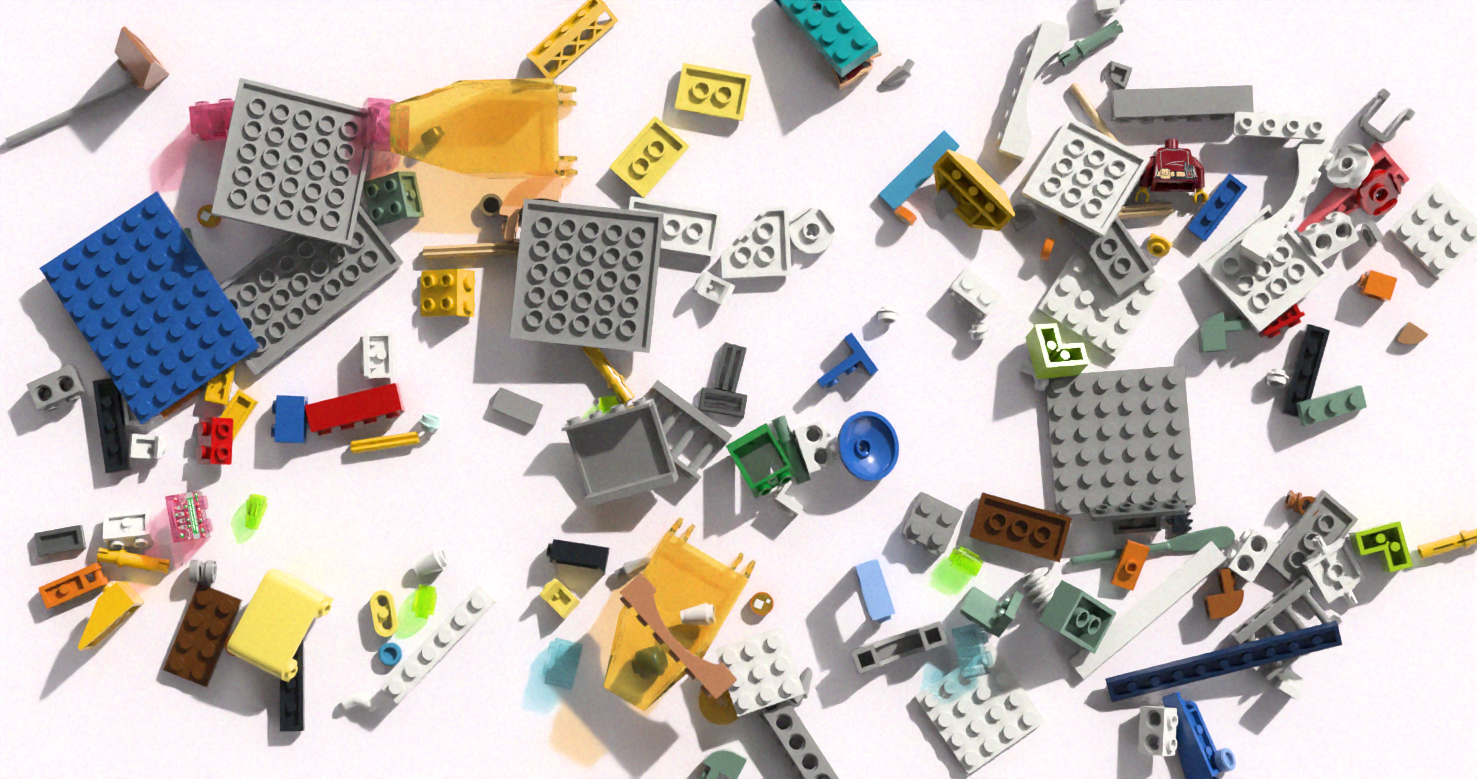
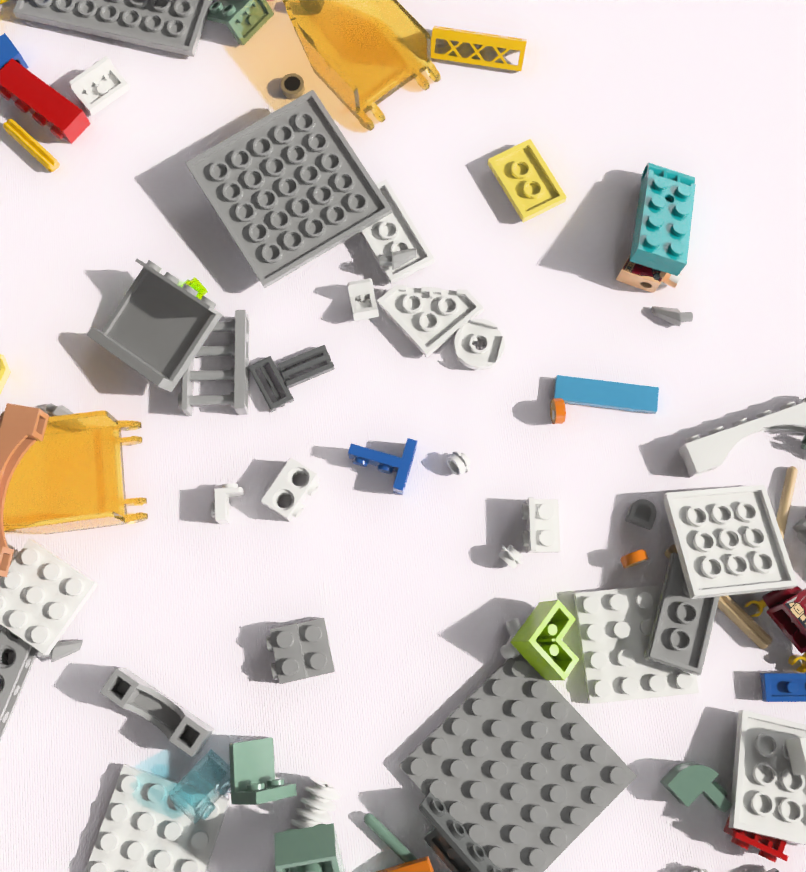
camera: 55 degrees right, 10 degrees down
(429, 422) = (73, 165): light aqua plate -> none
(447, 293) = (194, 104): yellow bracket -> none
(470, 250) = (237, 90): tan axle -> none
(517, 406) = (139, 223): light grey tile -> none
(537, 188) = (335, 103): light nougat arch -> none
(578, 554) = (42, 363): black window -> none
(610, 375) = (219, 280): yellow pin -> none
(649, 157) = (431, 171): light yellow plate -> none
(699, 615) = (56, 502): white cone -> none
(703, 238) = (398, 258): none -> light grey bar
(750, 443) = (239, 426): green window -> none
(762, 603) = (113, 553): pearl gold tile -> none
(790, 448) = (274, 467): sand green pin -> none
(874, 590) = (193, 645): light blue window -> none
(877, 443) = (337, 545): blue dish -> none
(945, 203) = (596, 437): light grey tile -> none
(965, 561) = (288, 711): clear neon green brick -> none
(980, 197) = (626, 449): yellow wedge -> none
(1020, 527) = (360, 740): reddish brown plate -> none
(1158, 245) = (723, 660): yellow plate -> none

